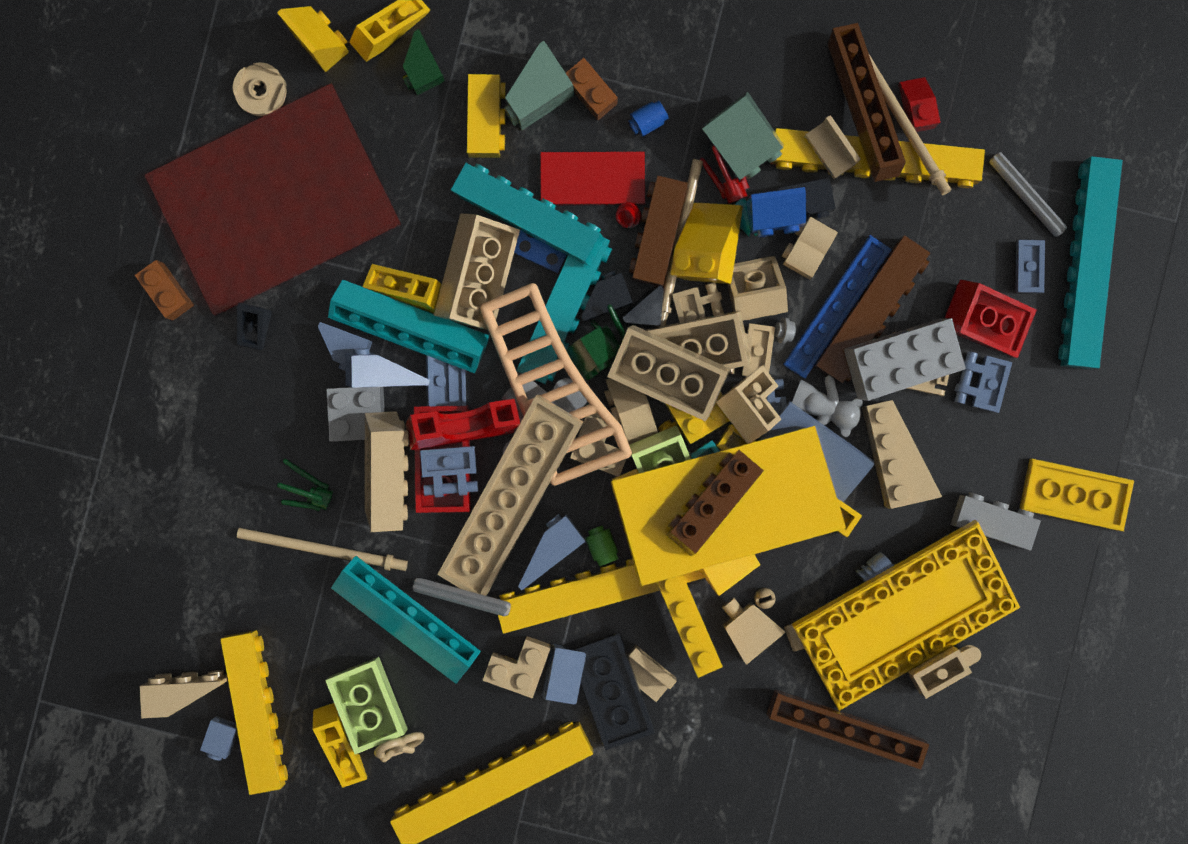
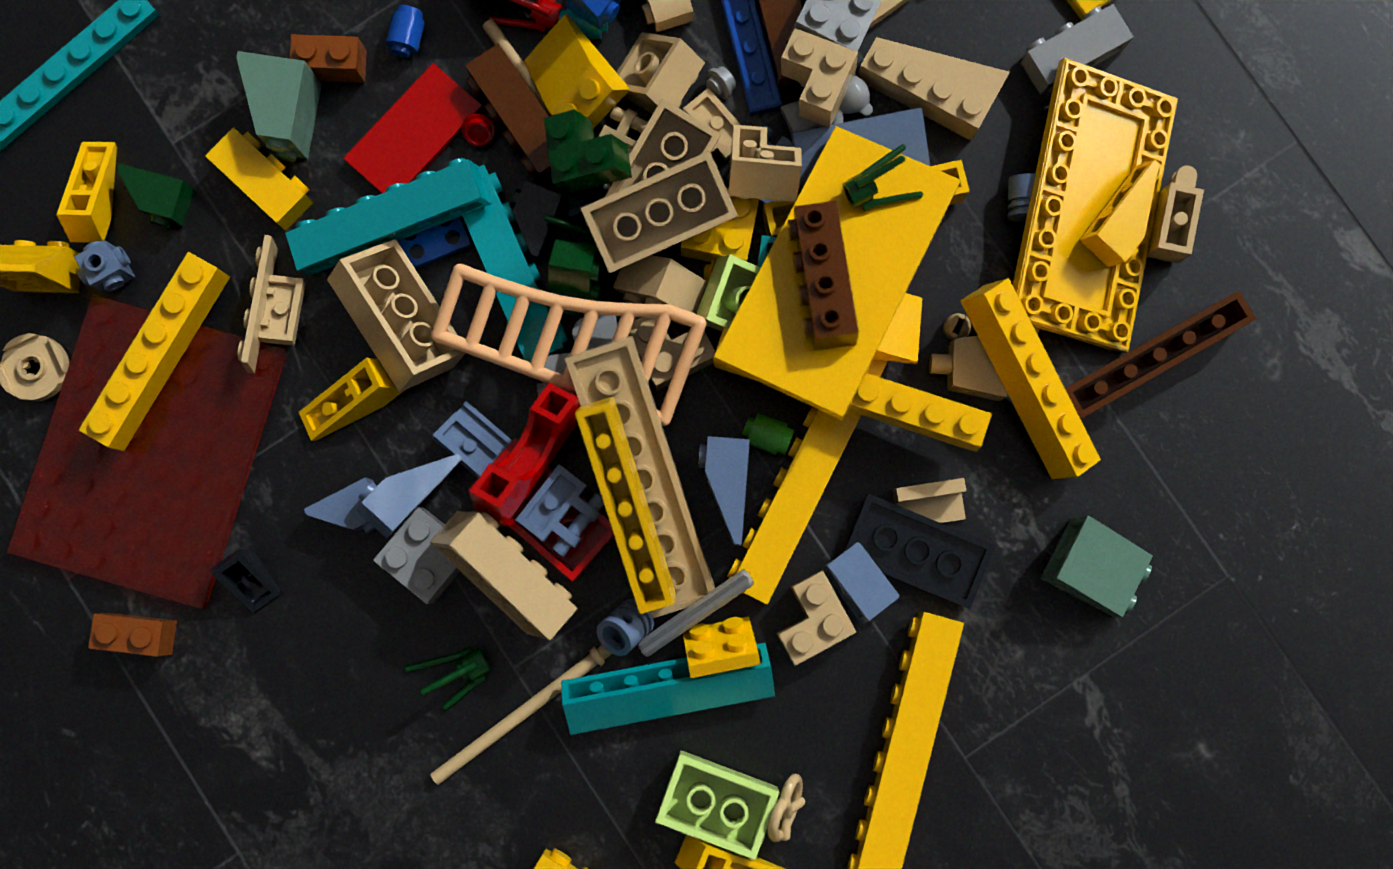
camera: 45 degrees left, 5 degrees down
(330, 155) = (154, 353): none -> yellow brick
(359, 81) = (104, 266): none -> sand blue brick
(408, 326) = (387, 429): teal brick -> none
(418, 196) = (273, 308): none -> tan bracket
(422, 564) = (625, 625): none -> sand blue piece
(455, 628) = (720, 646): none -> yellow plate
(485, 505) = (626, 504): none -> yellow brick
(659, 294) = (580, 159): none -> dark green brick
(695, 802) = (1098, 566): none -> sand green slope
(766, 669) = (1030, 379): none -> yellow brick
(788, 476) = (862, 187): none -> dark green plant
(842, 392) = (825, 71): none -> tan brick
(911, 641) = (1124, 218): none -> yellow slope

